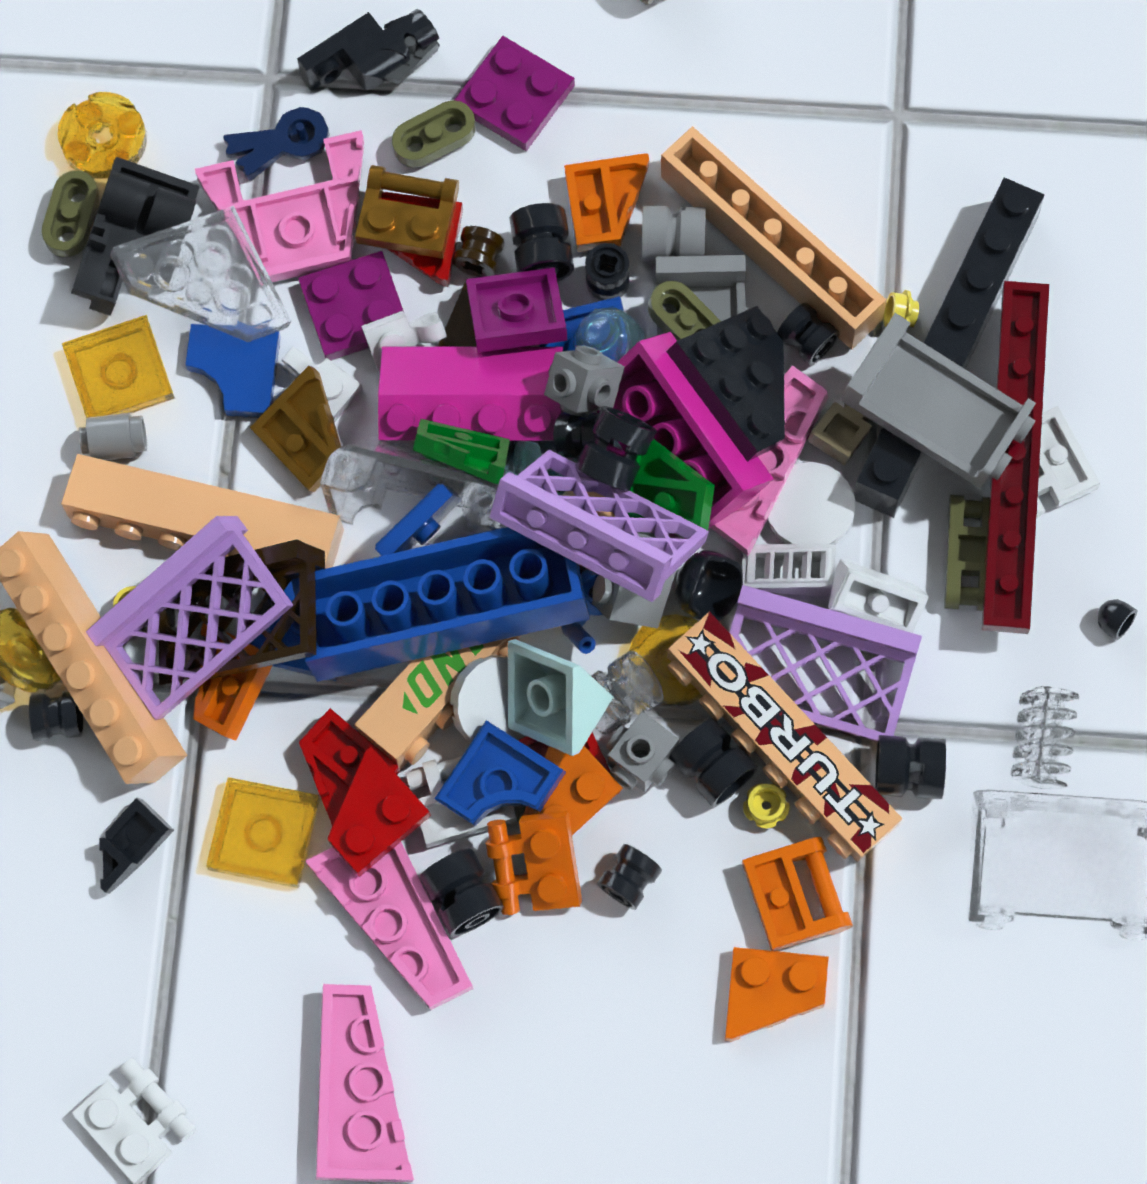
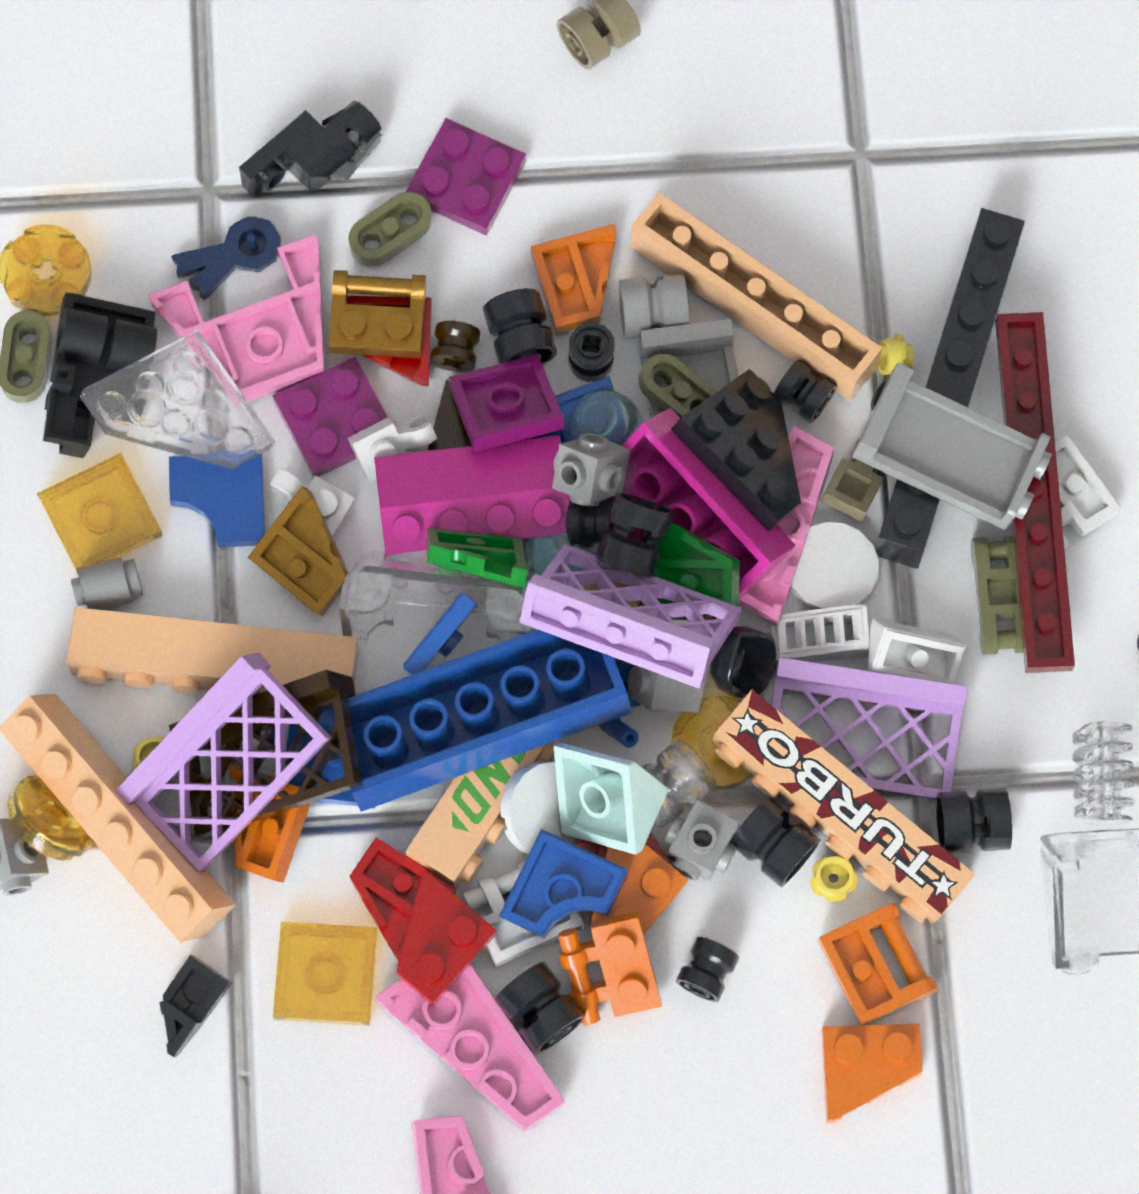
camera: 15 degrees left, 0 degrees up
(54, 716) = (92, 881): black wheel -> none

